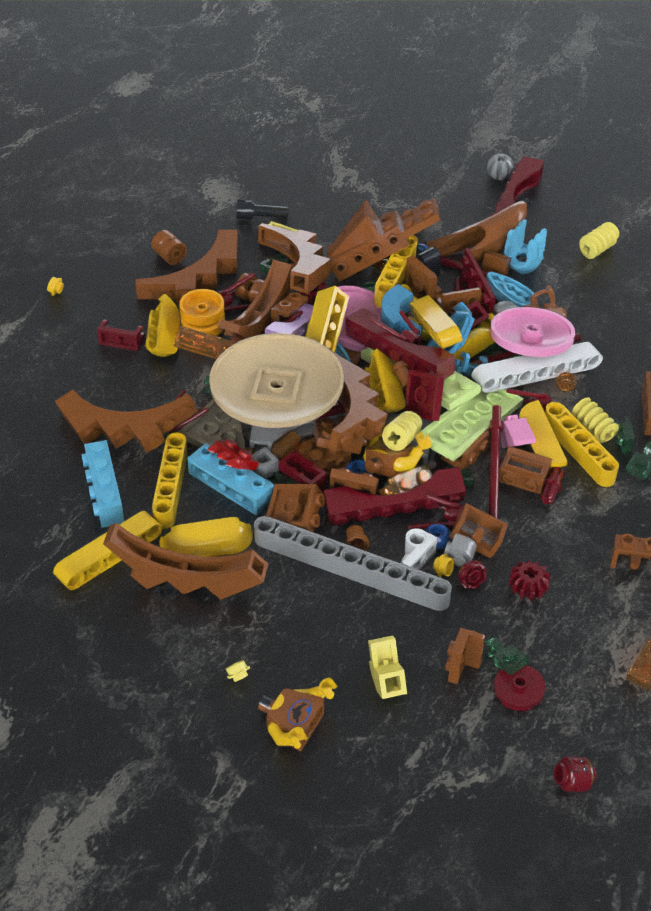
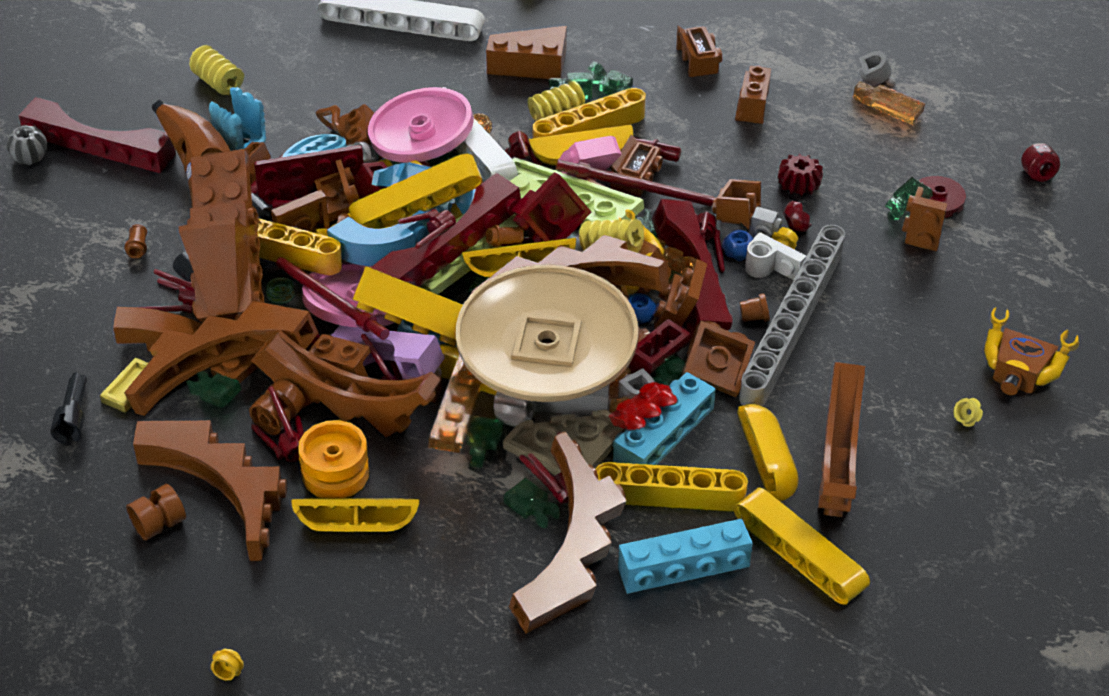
camera: 90 degrees left, 0 degrees up
(120, 337) = (362, 565): dark red hinge -> none
(307, 307) = (364, 320): none -> dark red bar
(325, 229) = (147, 325): none -> dark orange slope
(385, 669) = (949, 287): light yellow brick -> none

